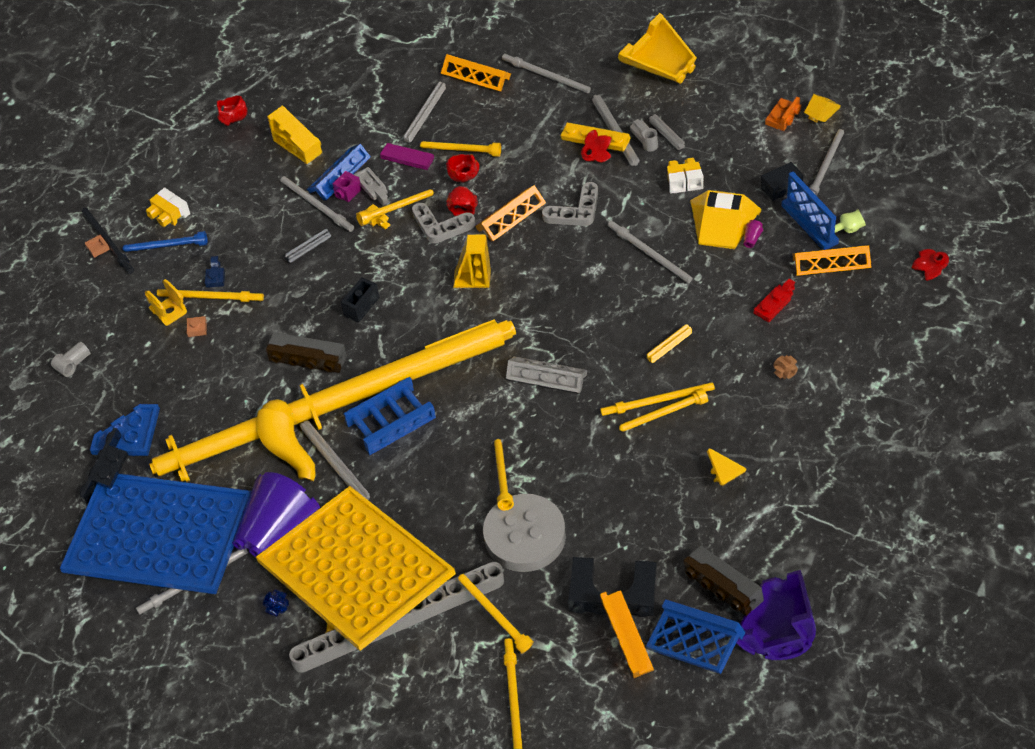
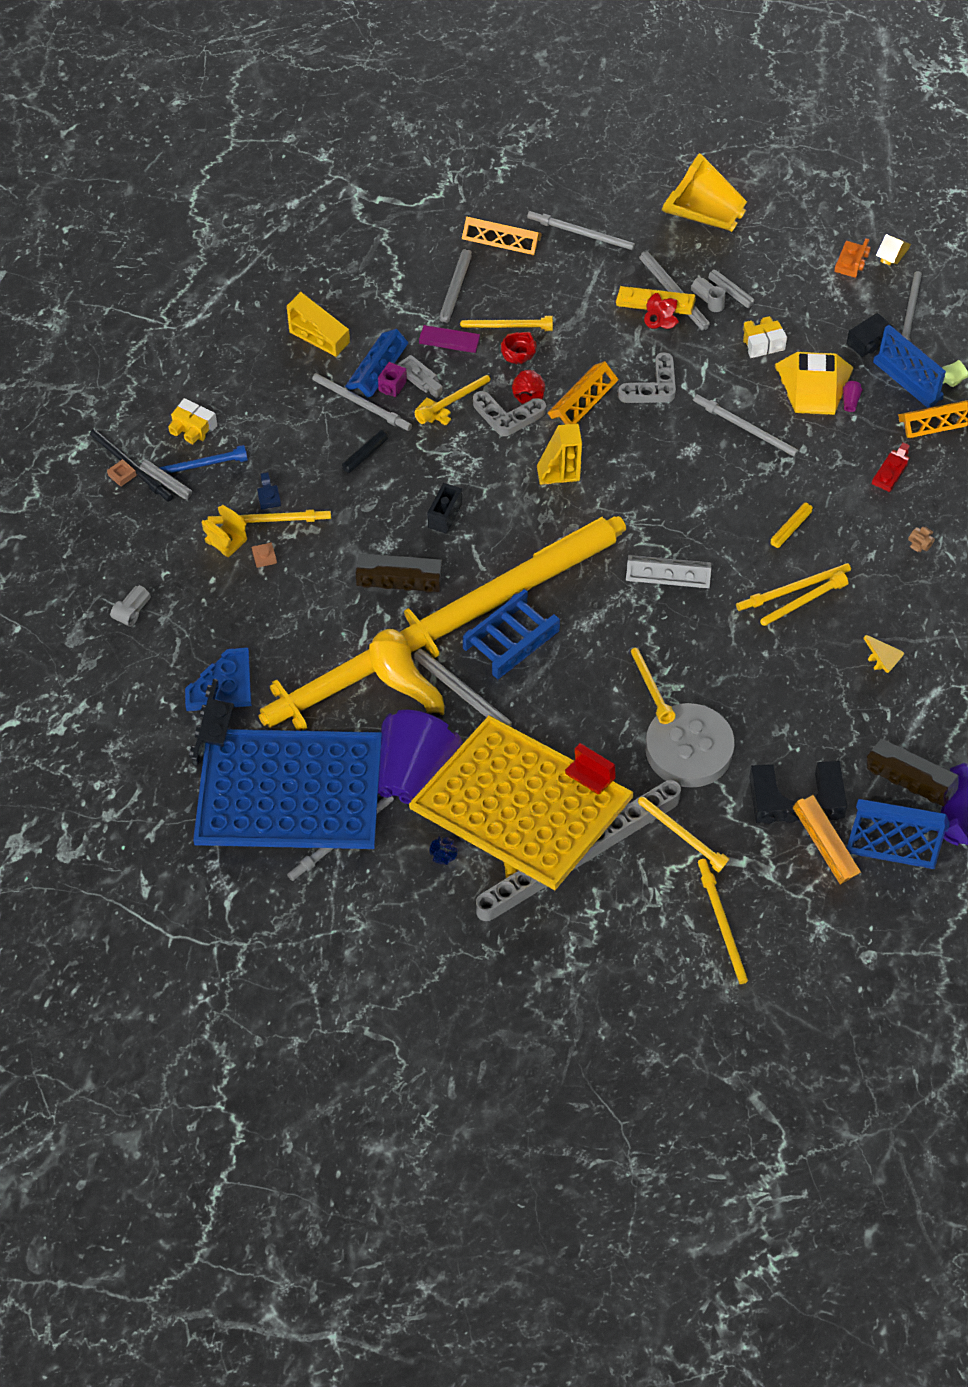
camera: 15 degrees left, 5 degrees up
(131, 254) = (166, 479): none -> light grey axle
(234, 110) = (235, 300): red hair -> none
(421, 544) = (591, 769): none -> red panel

